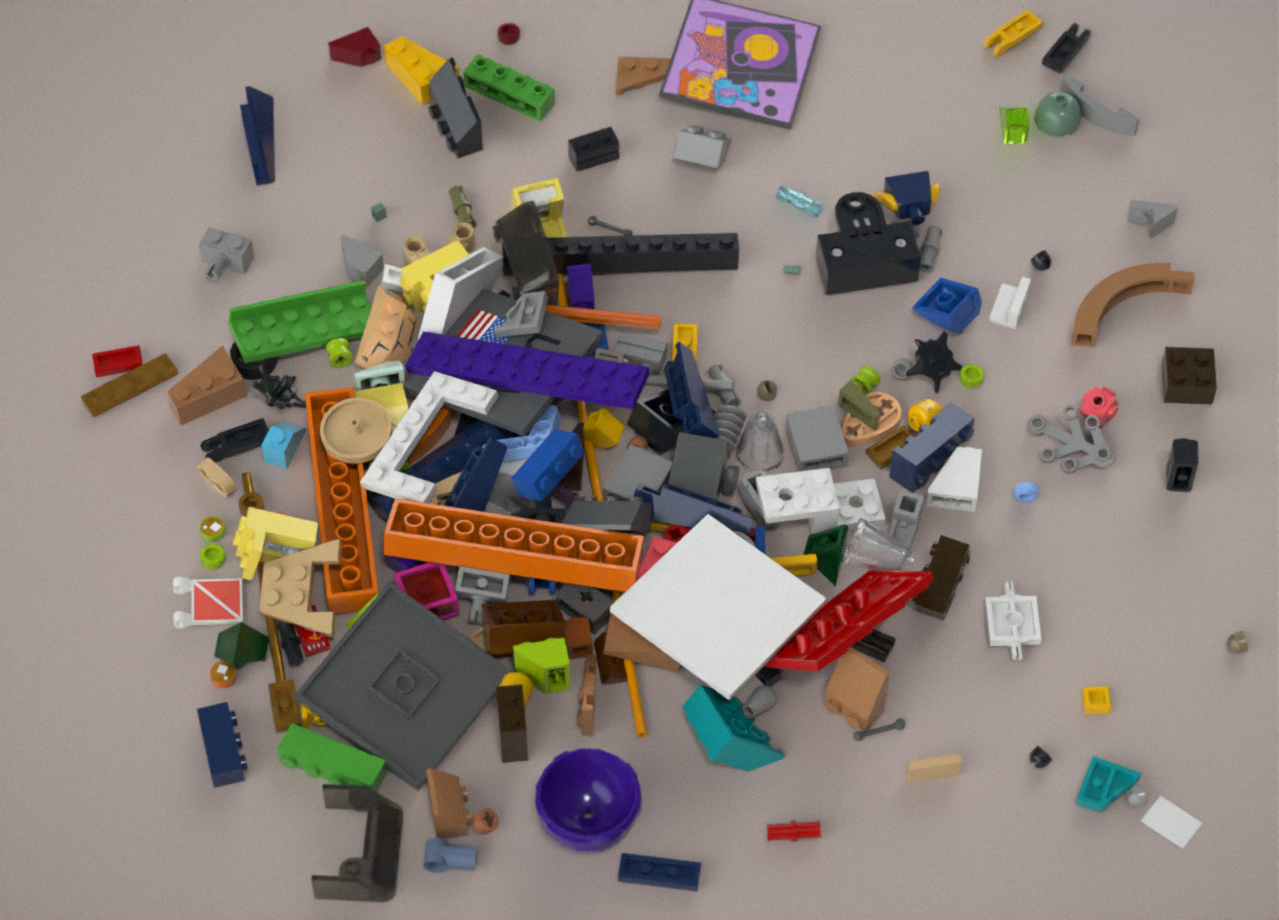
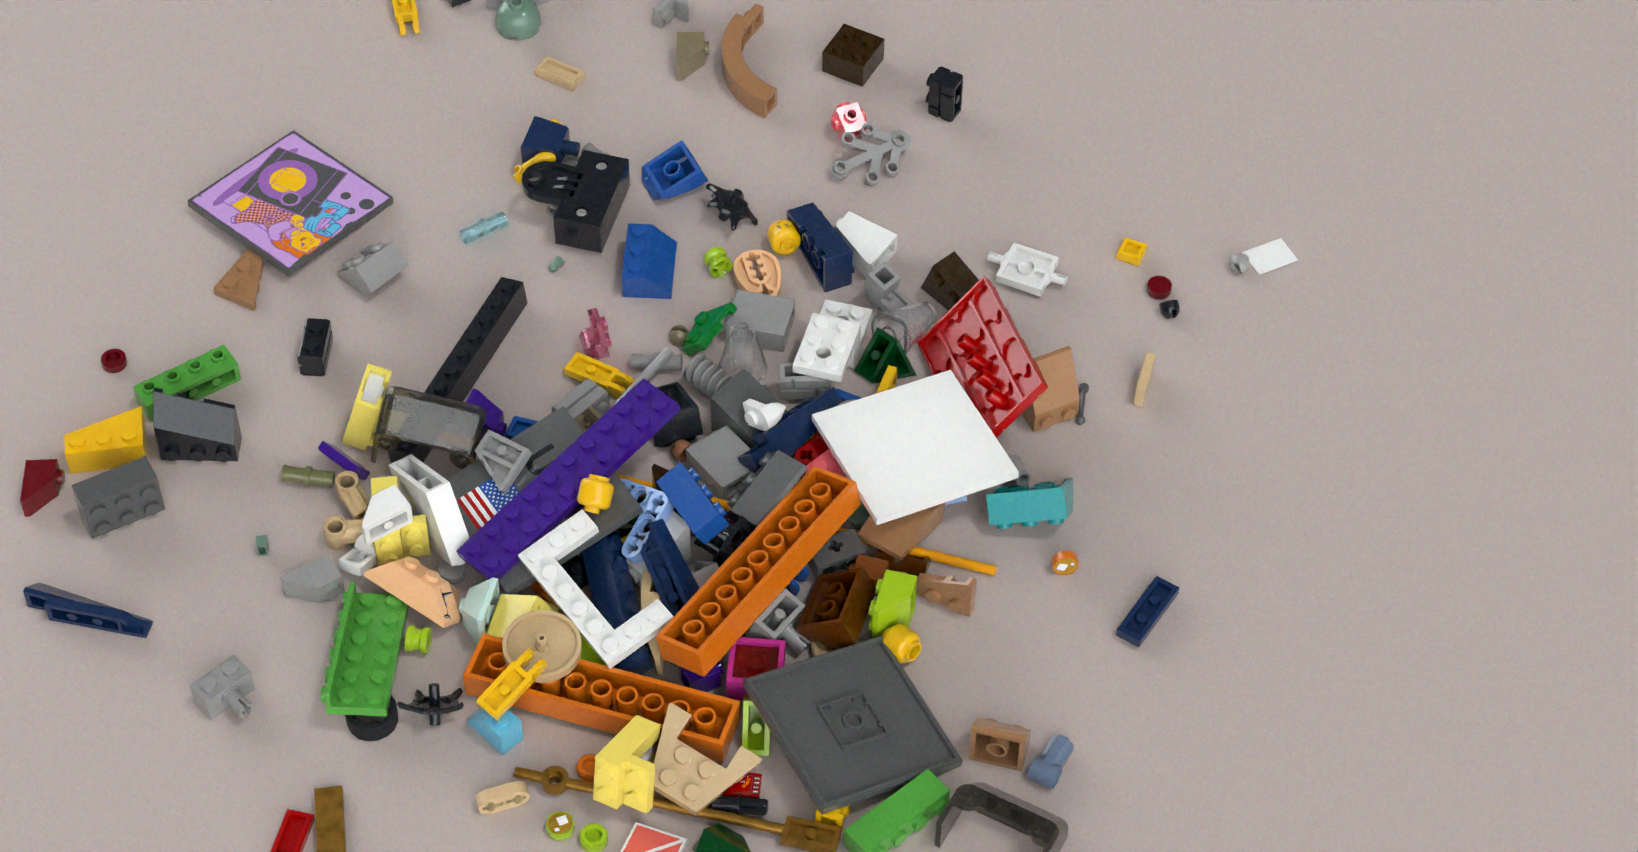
camera: 65 degrees left, 5 degrees down
(207, 388) = (387, 763): medium nougat wedge -> none
(235, 440) = (467, 763): black hinge -> none
(301, 424) = (510, 685): none -> yellow hinge
(364, 98) = (118, 497): none -> dark grey brick
(417, 262) = (385, 514): none -> white slope
(490, 817) = (1028, 720): nougat bush -> none
(491, 212) = (343, 460): none -> dark purple tile
(512, 723) = (945, 652): dark brown brick -> none
(513, 390) = (595, 493): none -> yellow head
(588, 784) = (1065, 609): dark purple rock -> none
(592, 220) = (427, 365): dark grey hinge -> none
(603, 429) = (647, 458): yellow brick -> none
(607, 317) = (532, 405): orange axle -> none
(676, 783) = (1065, 563): none -> tile
(681, 479) = (762, 415): none -> white plate
(689, 395) = (672, 384): dark blue wedge -> none
(719, 329) = (594, 339): none -> clear pink plate
(778, 404) = (706, 327): none -> green wing
(794, 830) = (1155, 500): red pin -> none
(831, 330) = (648, 263): none -> blue slope
(858, 405) = (749, 271): olive slope -> none
(882, 450) = (797, 276): pearl gold tile -> none
(897, 368) = (721, 230): light grey hinge -> none
(972, 376) = (756, 193): lime tile -> none
(1010, 304) = (700, 133): white panel -> none
(1014, 124) = (506, 48): clear neon green slope -> none
(1017, 173) = (559, 73): none -> tan tile
(1026, 492) = (904, 205): light blue tile -> none
(1041, 260) = (668, 95): black hinge -> none
(1064, 739) = (1159, 287): none -> dark red tile
(1102, 253) = (690, 53): none -> dark tan slope
(1105, 784) = (1217, 279): teal wing -> none
(1237, 642) = (1128, 140): dark tan hinge -> none

